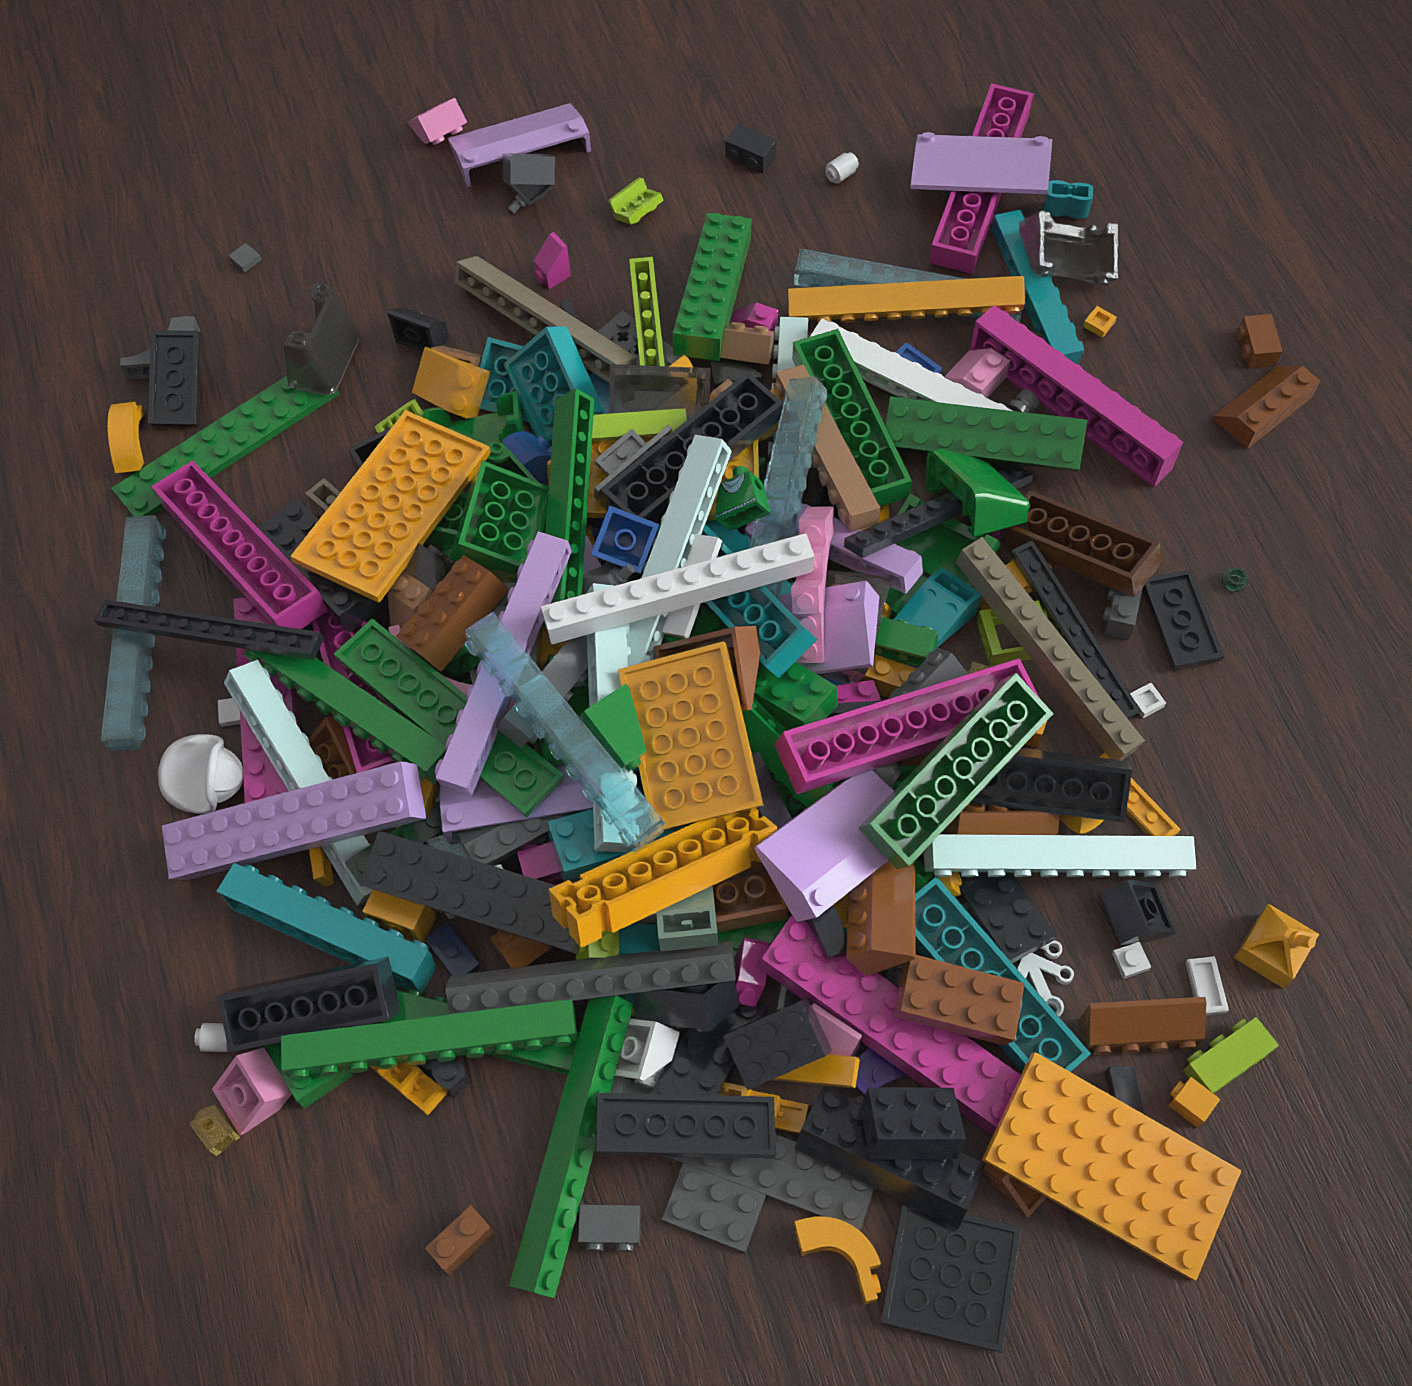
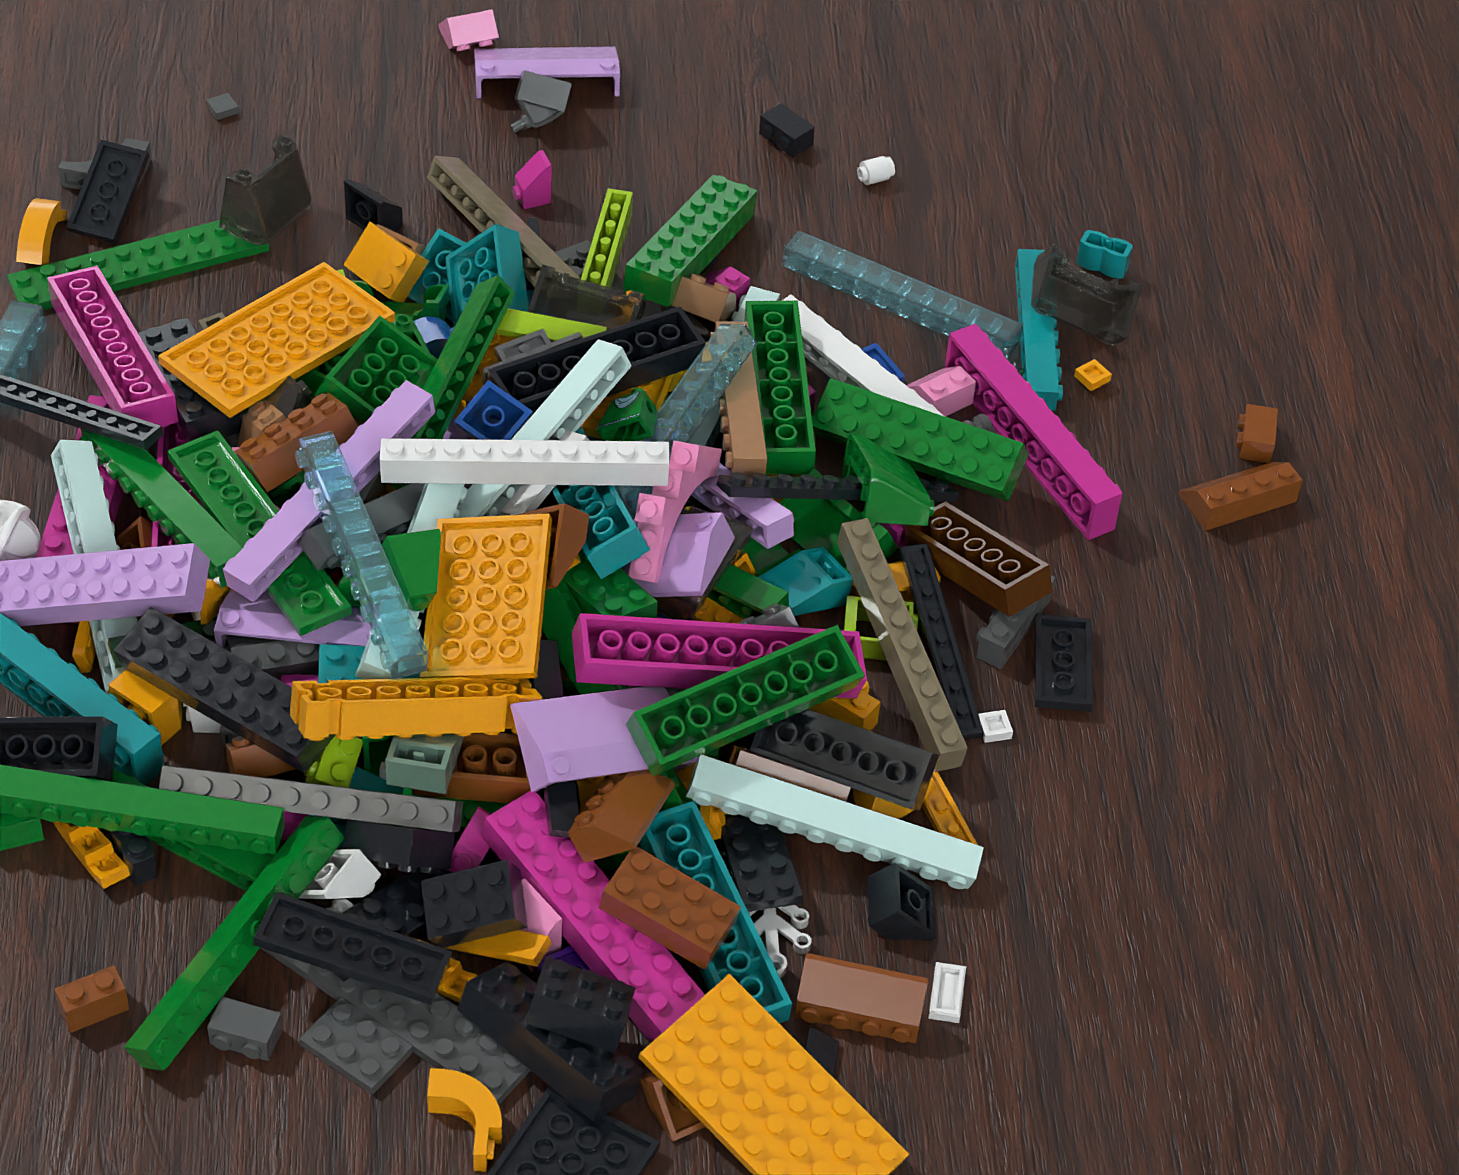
camera: 10 degrees right, 15 degrees down
(228, 712) = (45, 497): white tile -> none
(452, 951) = (182, 750): dark blue plate -> none
(634, 202) = (643, 149): lime bracket -> none
(907, 299) = (891, 300): light orange brick -> none
(971, 212) = (1019, 213): dark pink brick -> none
(982, 164) = (1022, 196): lavender slope -> none
(1131, 960) = (877, 949): white plate -> none
(1193, 1101) = (886, 1084): light orange brick -> none
(1231, 1055) = (942, 1056): lime brick -> none
(1237, 574) = (1136, 641): clear green plate -> none
(1276, 946) = (1033, 971): light orange piece -> none

